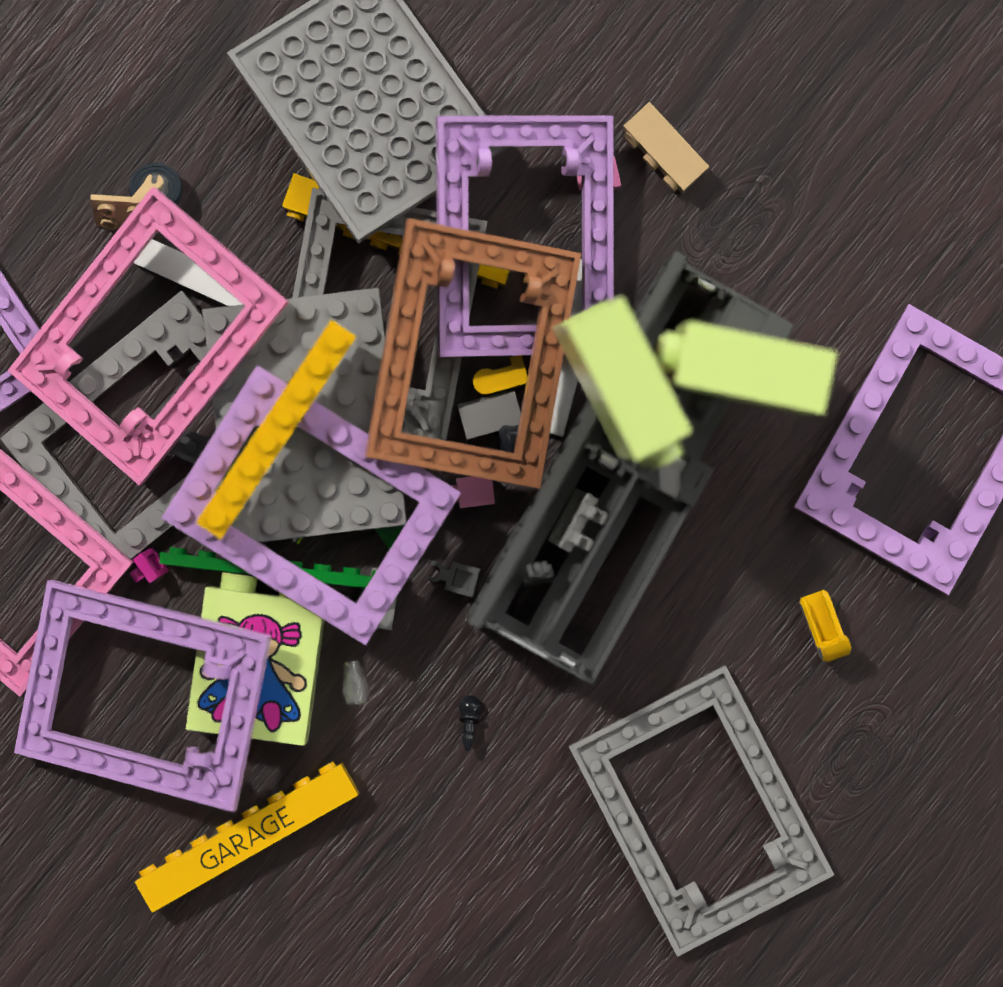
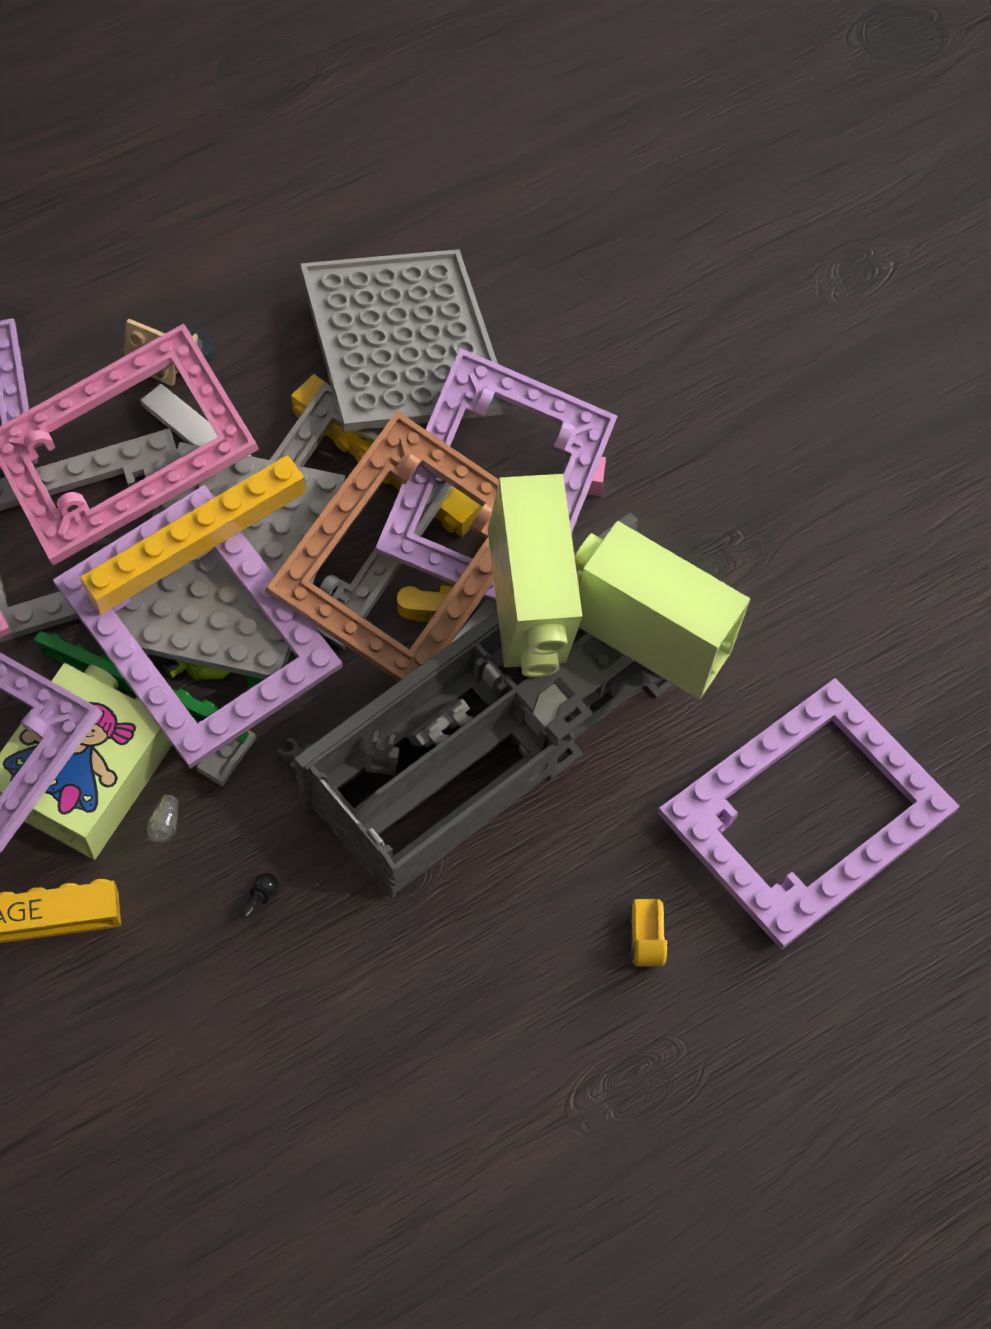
camera: 20 degrees right, 25 degrees down
(148, 566) = (23, 645): dark pink tile -> none
(474, 492) = (356, 688): bright pink brick -> none
(489, 413) = (400, 625): light grey hinge -> none
(664, 148) = (654, 473): tan brick -> none
(794, 855) = (531, 1149): light grey plate -> none

